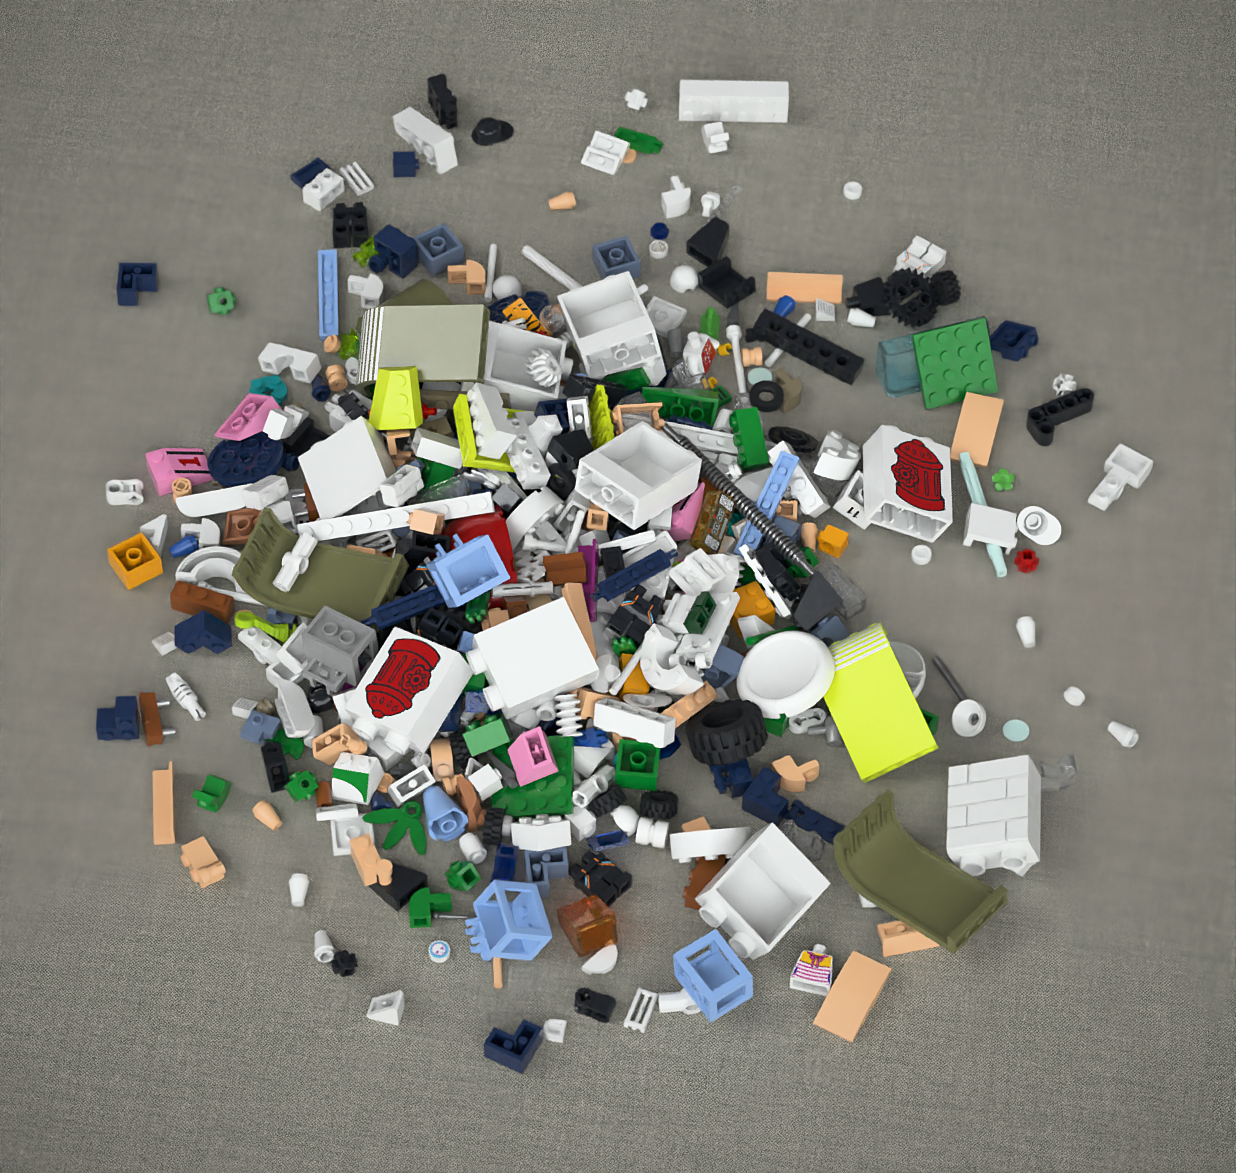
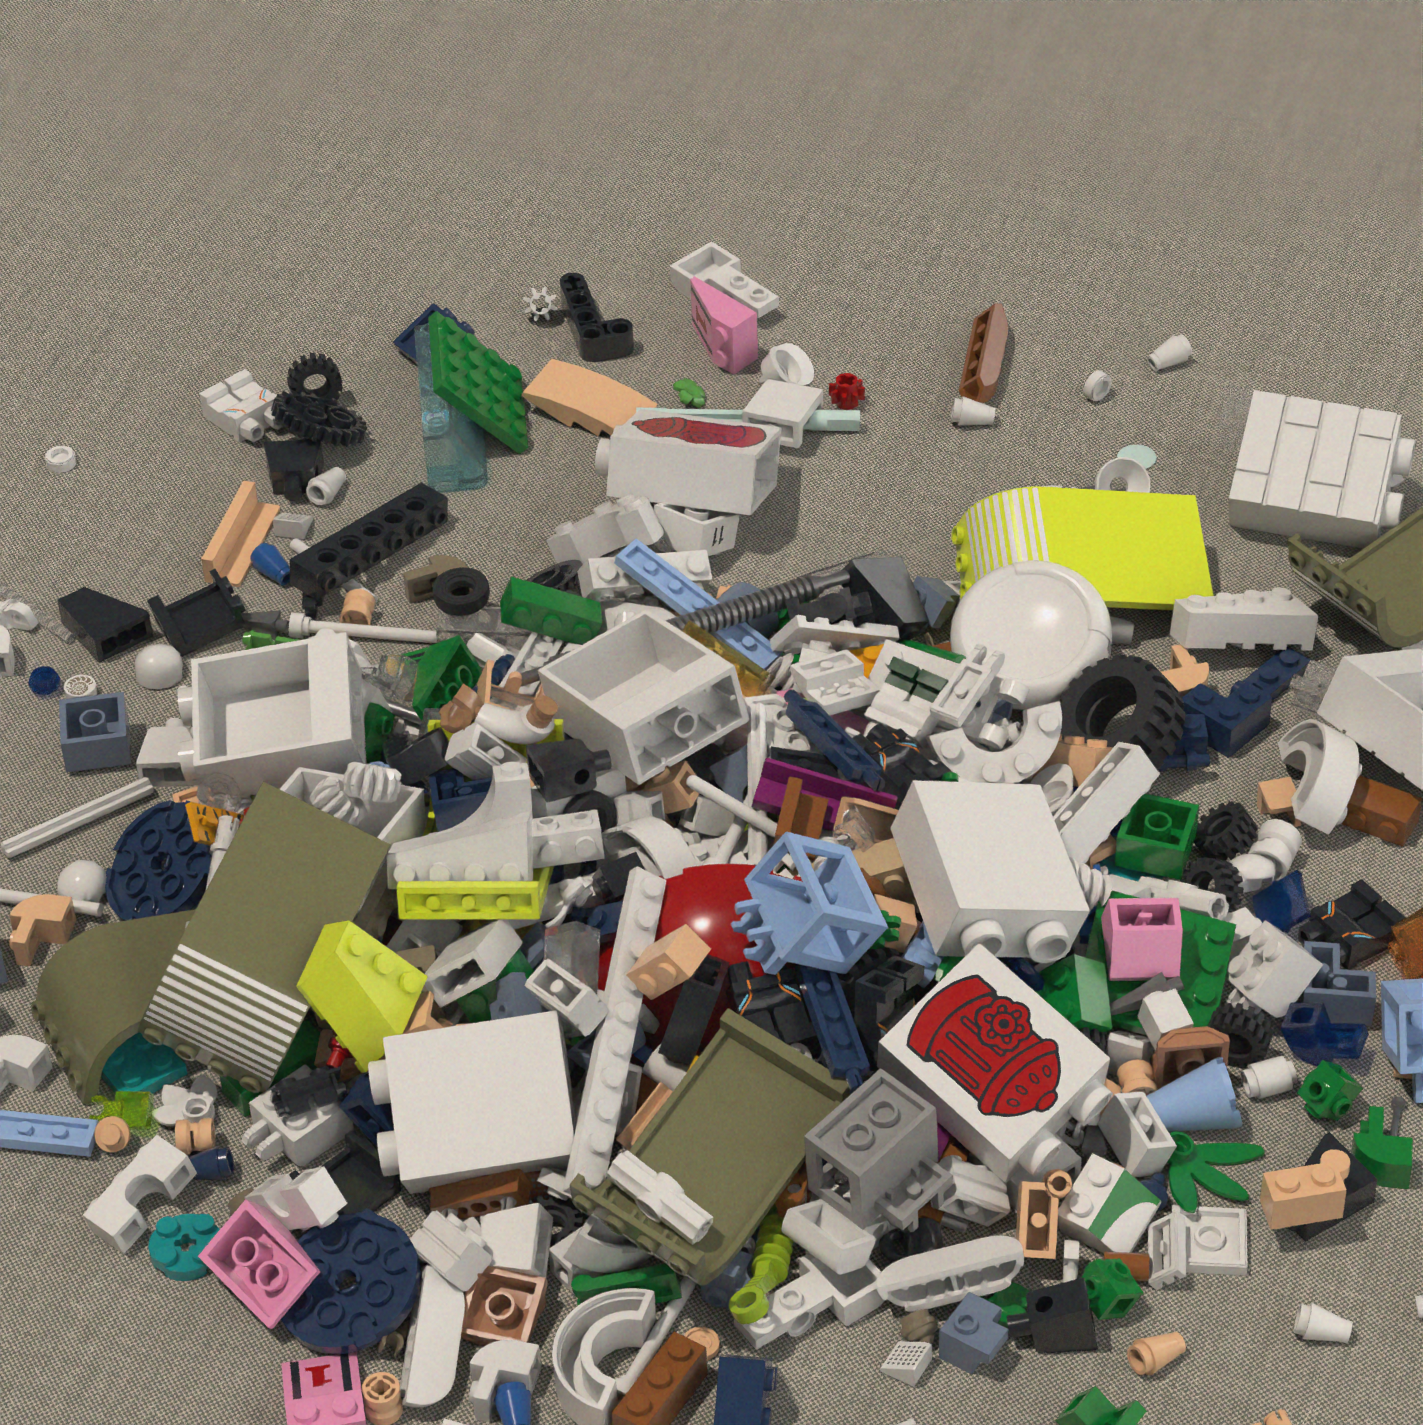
camera: 75 degrees left, 10 degrees down
(321, 767) = (1070, 1260): none -> white bar
(555, 592) = (857, 828): none -> clear tile
(597, 415) = (520, 727): none -> piece
(696, 632) = (966, 686): none -> white hinge
(759, 374) = (392, 615): light aqua sticker -> none
(832, 541) = (756, 570): light orange brick -> none
(842, 786) = (1243, 620): none -> white wedge
(921, 554) = (799, 496): white tile -> none
(1060, 480) = (724, 327): none -> bright pink slope
(1060, 630) = (984, 354): none -> dark orange brick

